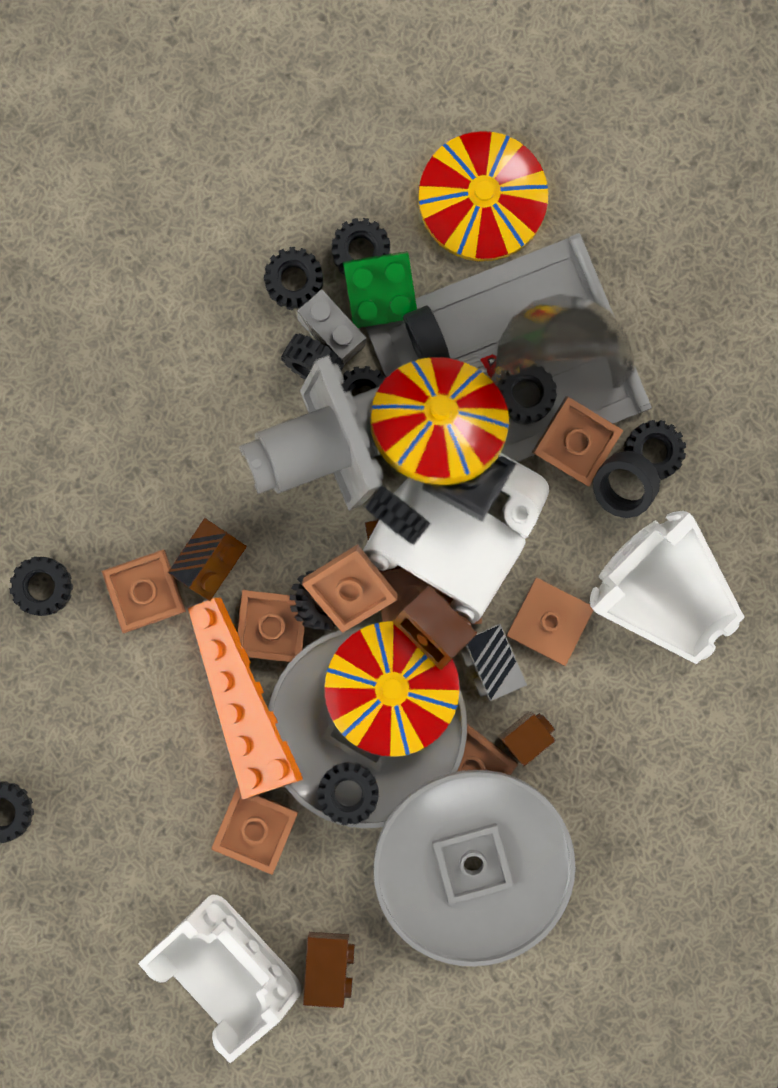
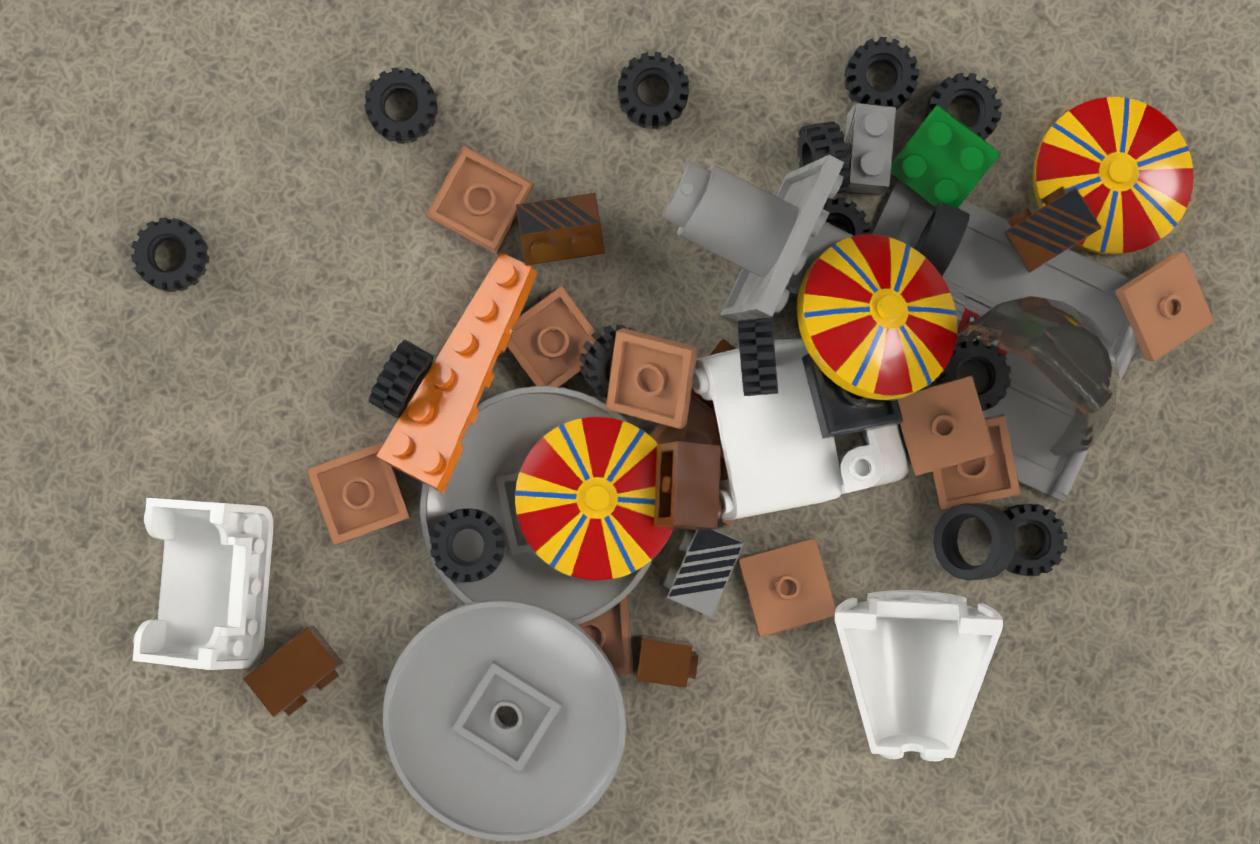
camera: 40 degrees right, 0 degrees up
(160, 410) = (658, 67): none -> black tyre
(208, 740) = (400, 378): none -> black tyre
(481, 263) = (1052, 228): none -> brick
(540, 438) = (944, 425): none -> nougat plate
(590, 239) = (1165, 306): none -> nougat plate

